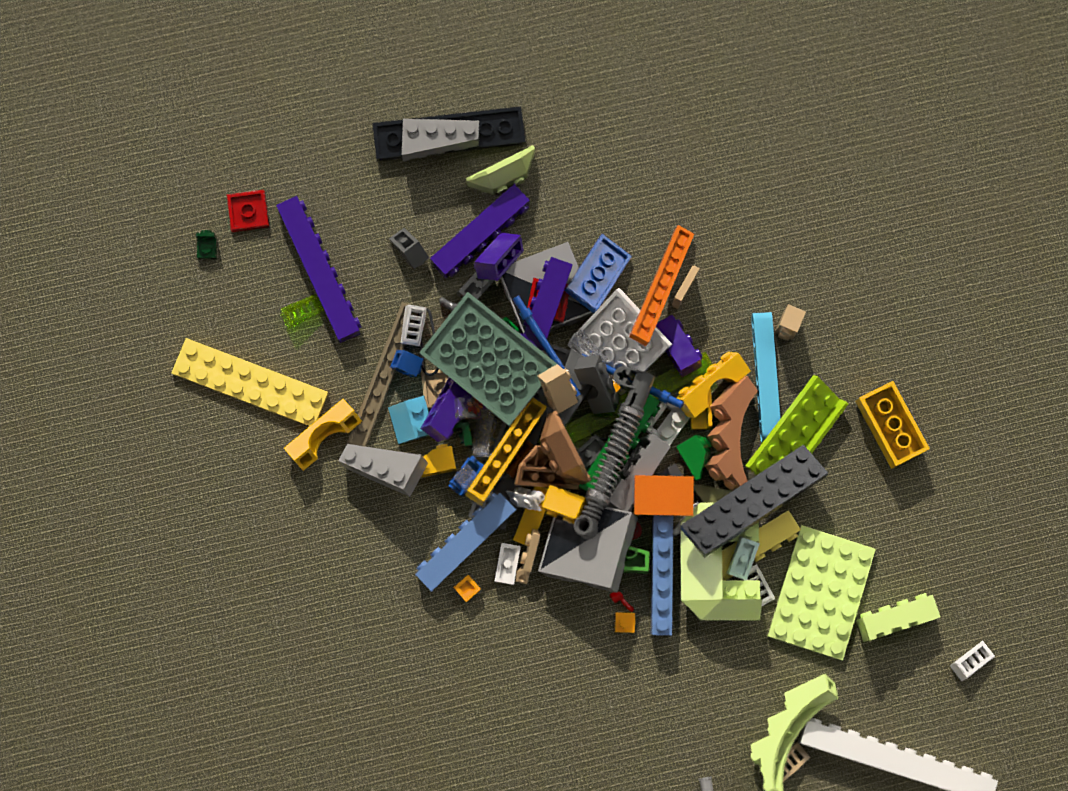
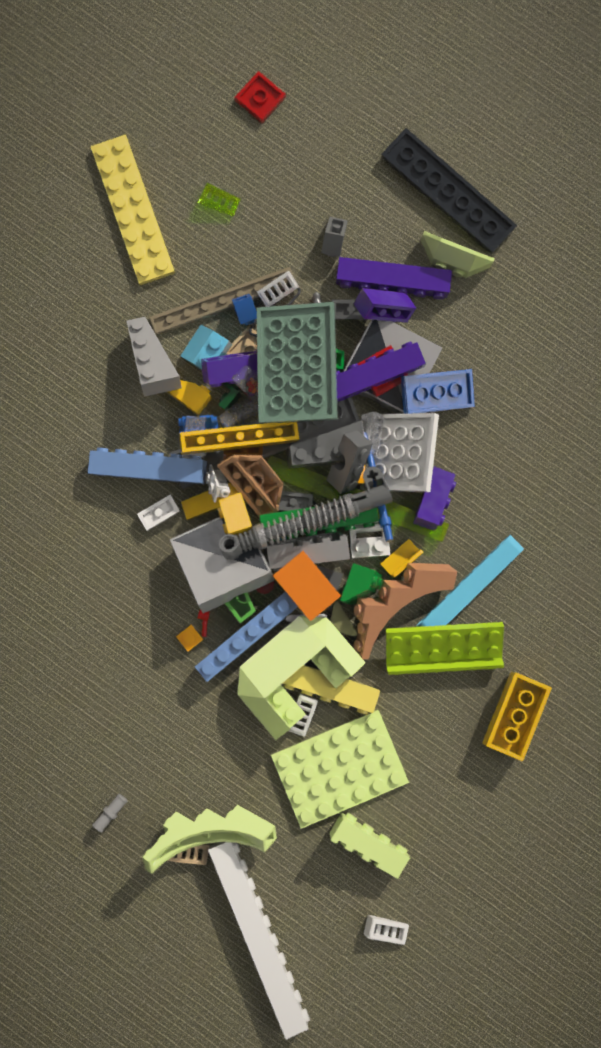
camera: 50 degrees right, 5 degrees up
(206, 245) = (208, 89): dark green bracket -> none
(305, 446) = (116, 289): yellow arch -> none
(318, 269) = (259, 184): dark purple brick -> none
(431, 136) = (436, 180): light grey wedge -> none
(467, 588) = (114, 498): light orange plate -> none
(526, 314) = (355, 361): blue bar -> none
(528, 558) = (173, 524): tan hinge -> none
(558, 389) = (317, 434): tan brick -> none
(561, 450) = (272, 478): medium nougat wedge -> none
(661, 286) = (468, 446): orange plate -> none
(685, 287) = (485, 466): tan tile -> none
(695, 397) = (405, 545): yellow arch -> none
(743, 558) = (311, 687): light aqua plate -> none
(753, 501) = (362, 658): black plate -> none
(790, 322) = (528, 569): tan brick -> none

